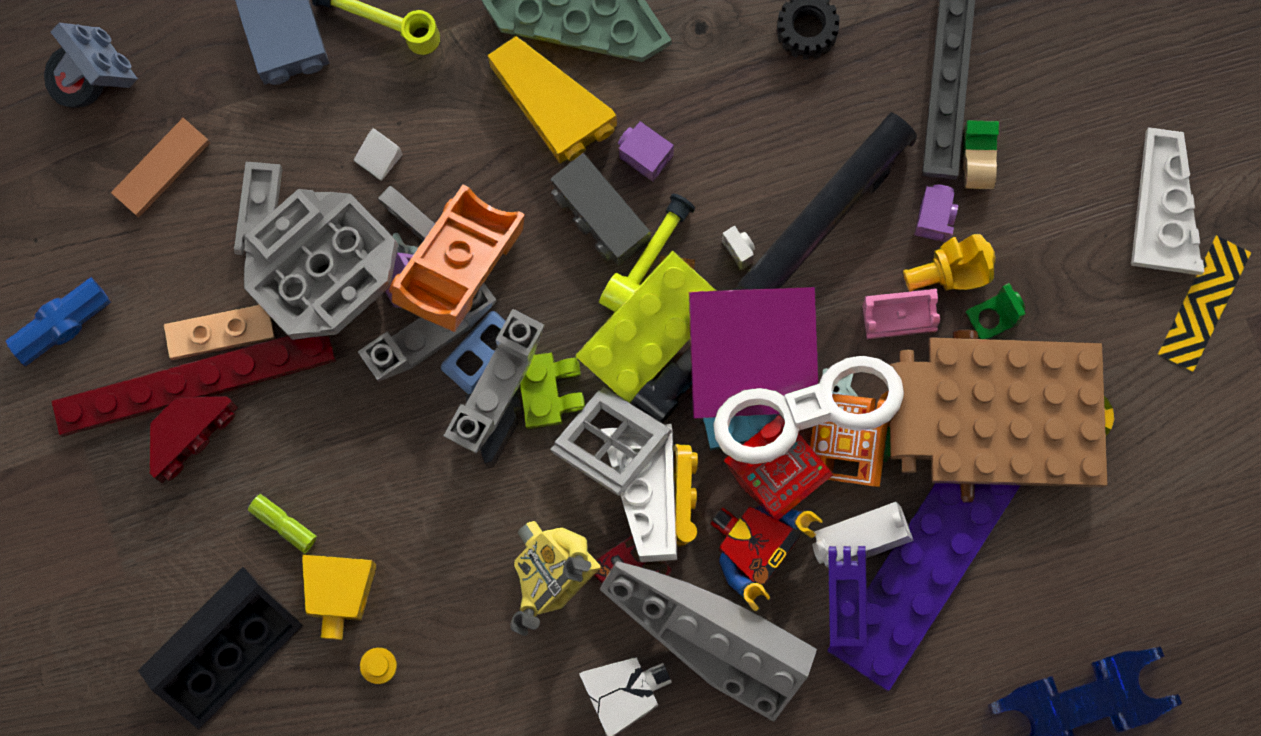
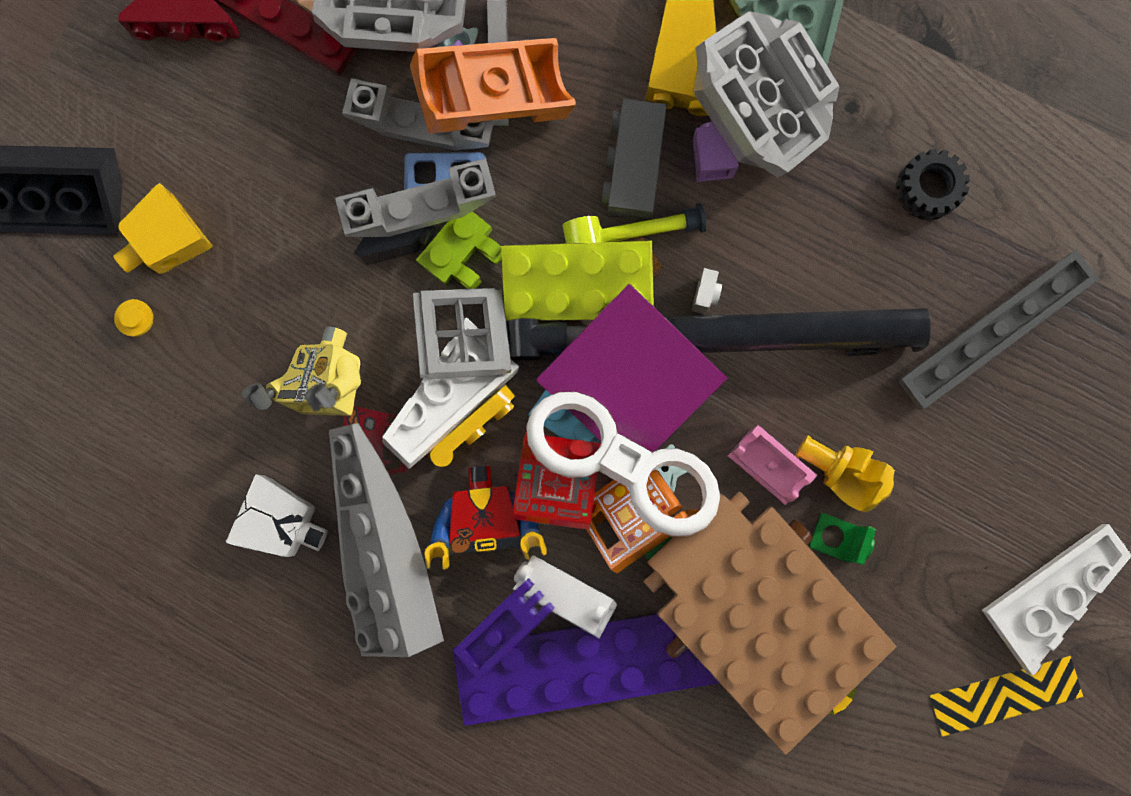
camera: 40 degrees right, 5 degrees up
(286, 526) = (177, 142): lime piece -> none
(641, 78) = (766, 91): none -> light grey piece
(936, 213) = (878, 419): medium lavender brick -> none
(980, 154) = (958, 410): leg -> none

